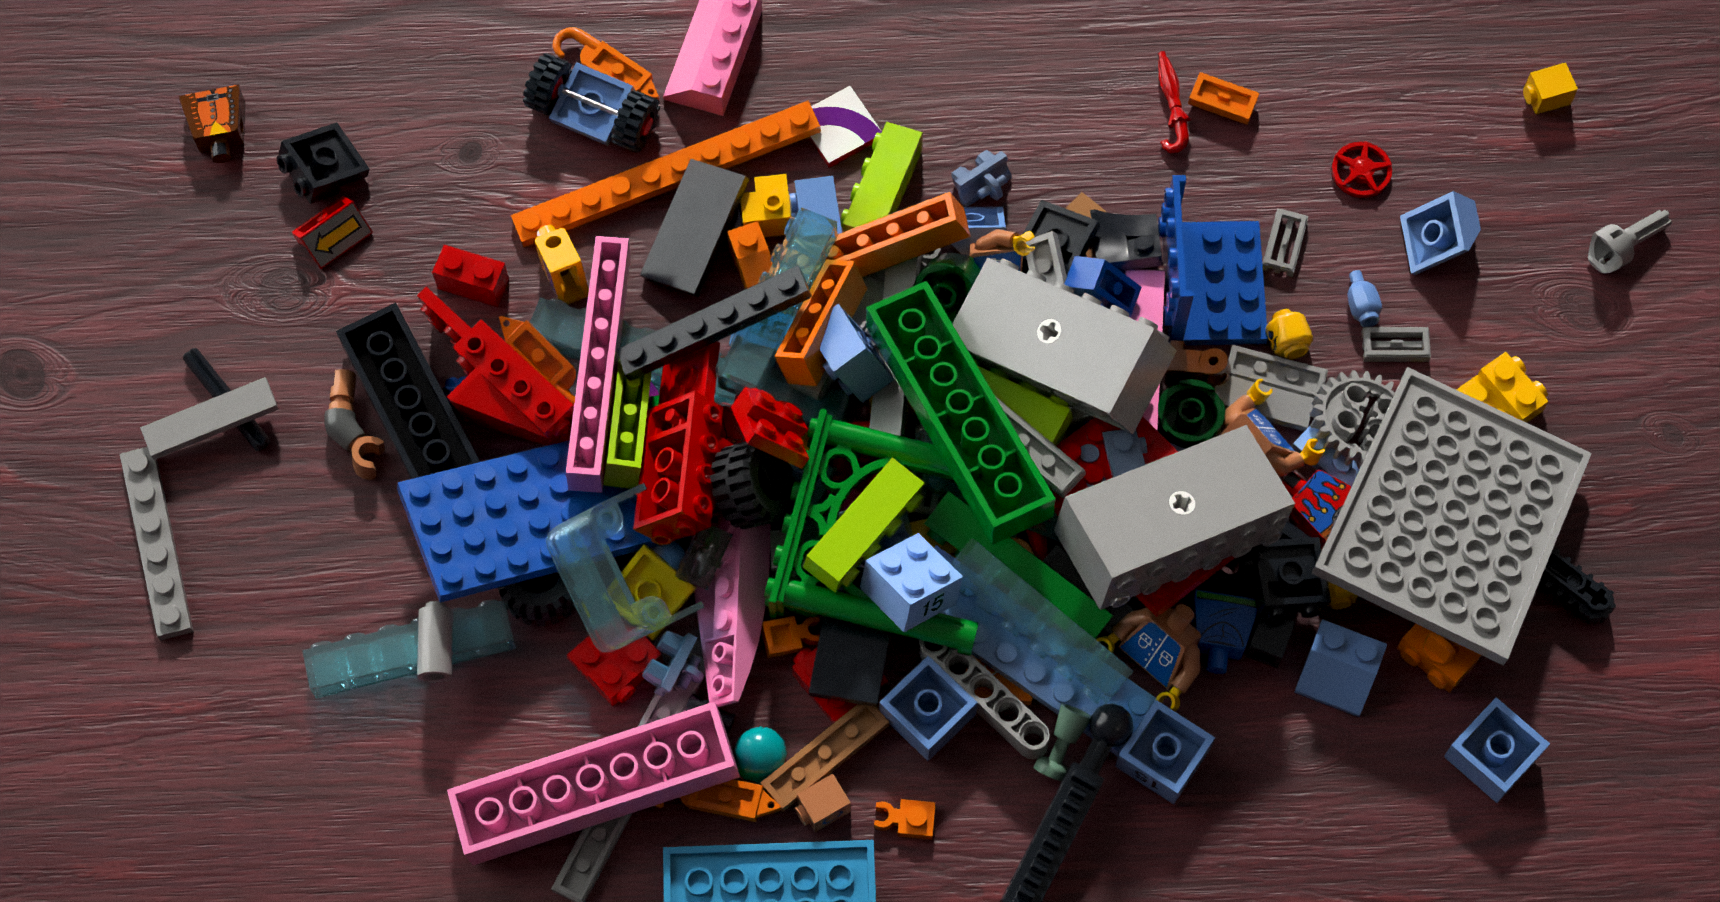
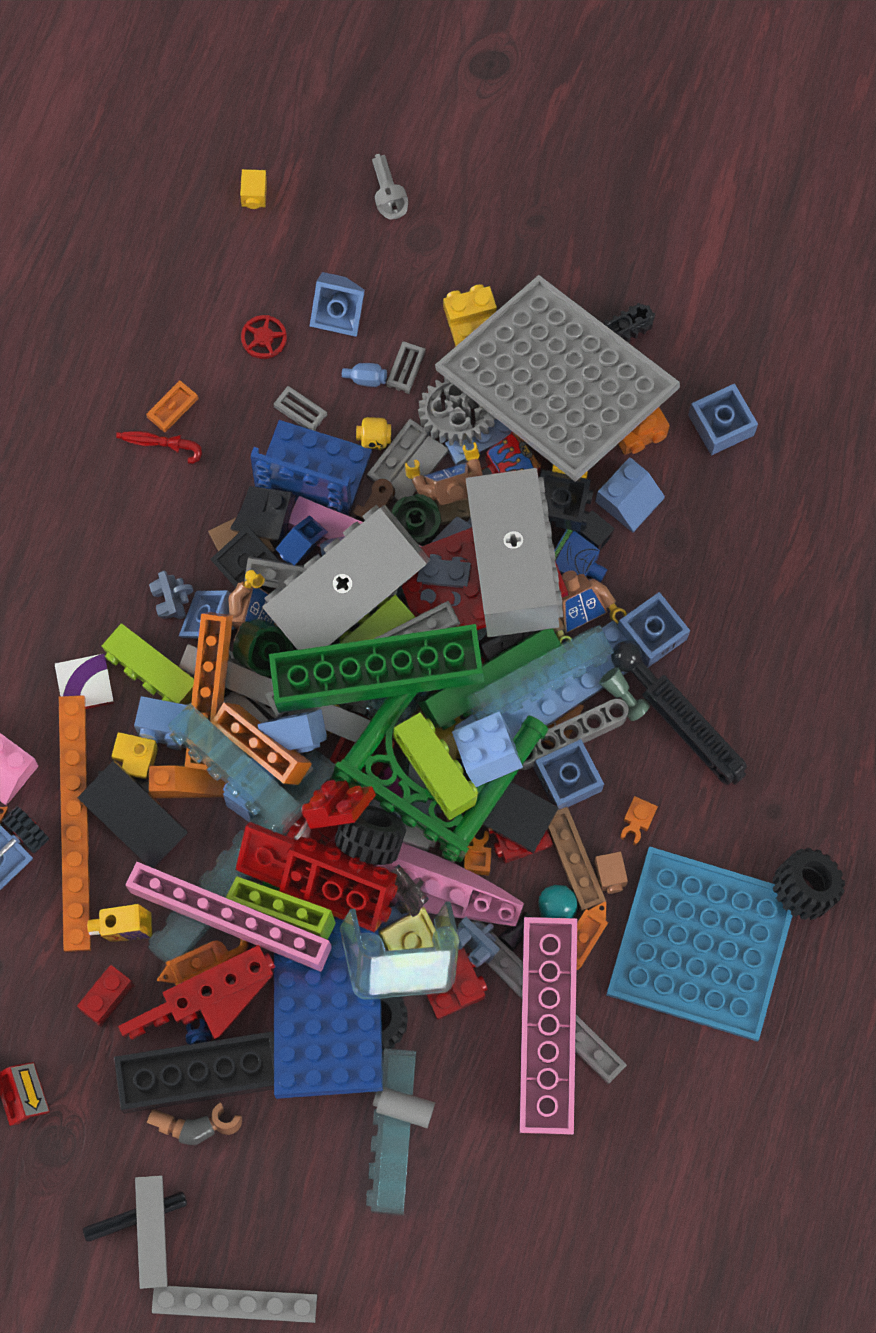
camera: 75 degrees left, 5 degrees up
(714, 323) = (238, 819): black plate -> none

